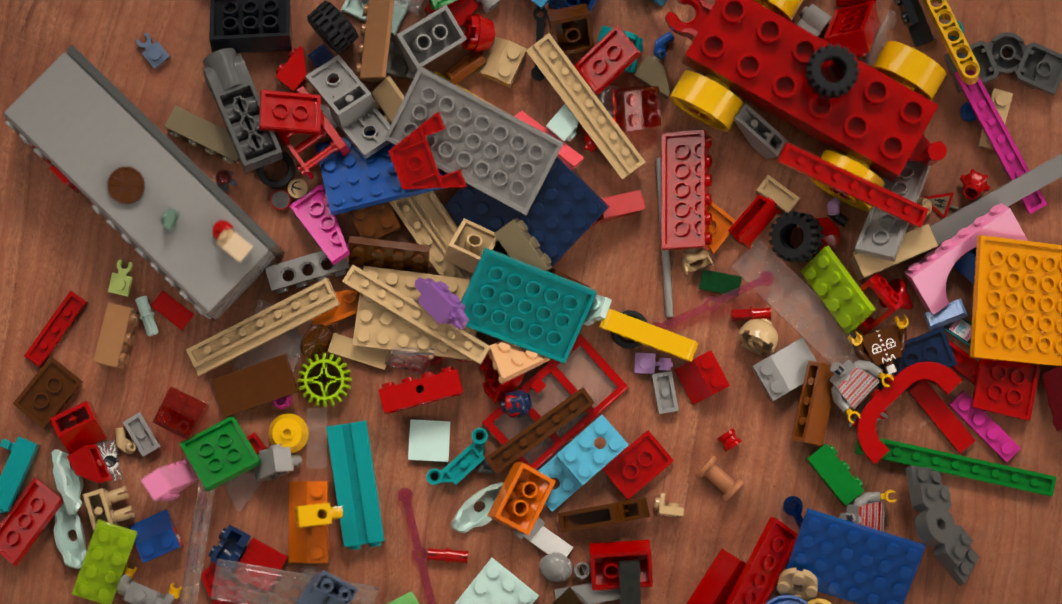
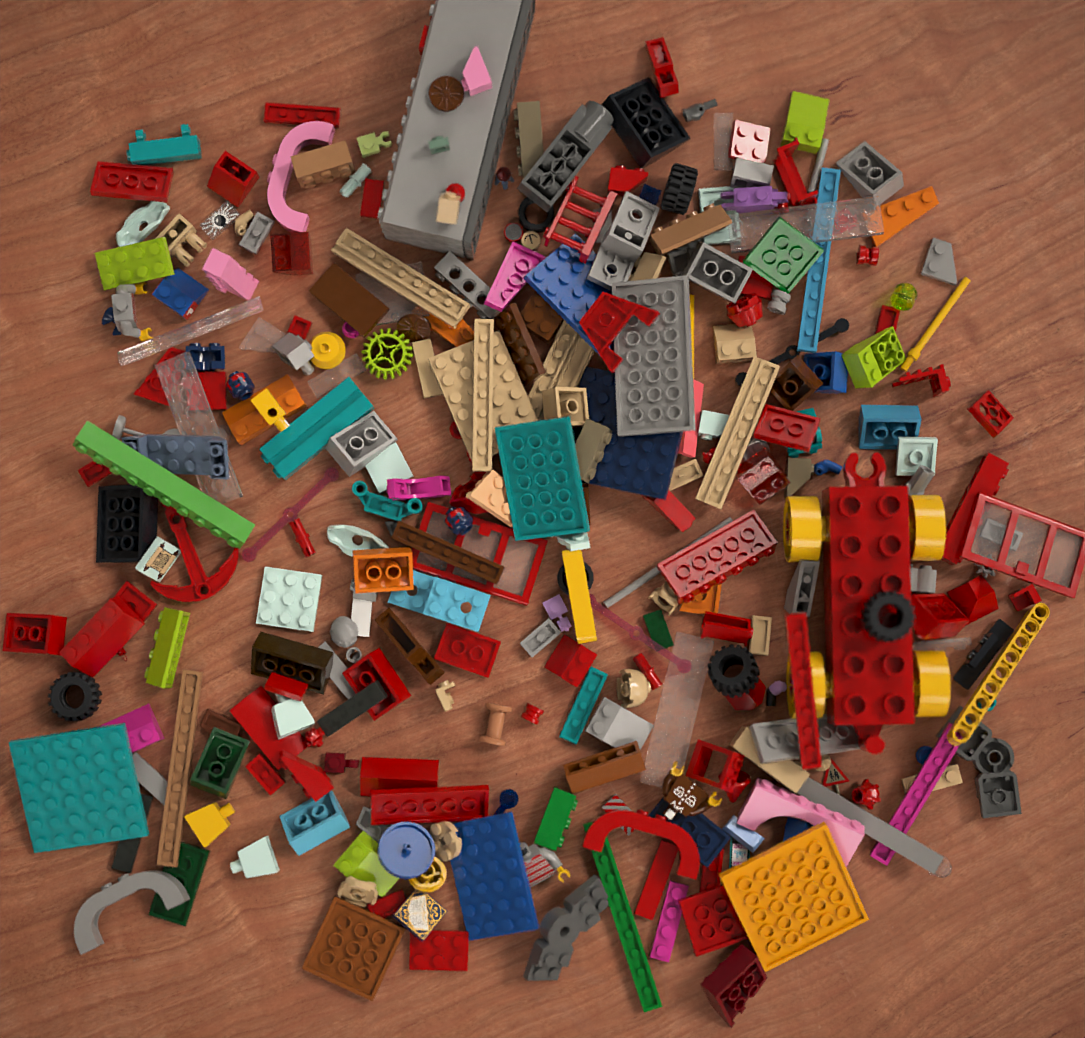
camera: 55 degrees right, 0 degrees up
(47, 392) = (247, 138): reddish brown plate -> none
(67, 481) = (175, 204): light aqua piece -> none
(76, 336) = (299, 137): none -> bright pink arch
(89, 464) = (207, 205): red slope -> none
(125, 148) = (475, 74): none -> bright pink slope
(154, 52) = (573, 61): sand blue plate -> none
(220, 453) = (276, 304): green plate -> none
(274, 531) = (240, 385): none -> dark blue head
(290, 112) = (587, 194): red tile -> none
(392, 452) = (360, 443): none -> light grey slope
(406, 395) = (413, 427): red brick -> none
(410, 359) = (443, 412): clear wing -> none
(441, 303) = (503, 408): medium lavender hinge -> none
(465, 67) = (711, 316): dark orange tile -> none
(465, 422) = (418, 488): none -> dark pink arch
(594, 174) = (685, 474): none -> tan plate
(748, 390) = (583, 705): none -> teal tile
(838, 290) = (709, 731): lime plate -> none
(853, 383) = (639, 789): light grey torso -> none

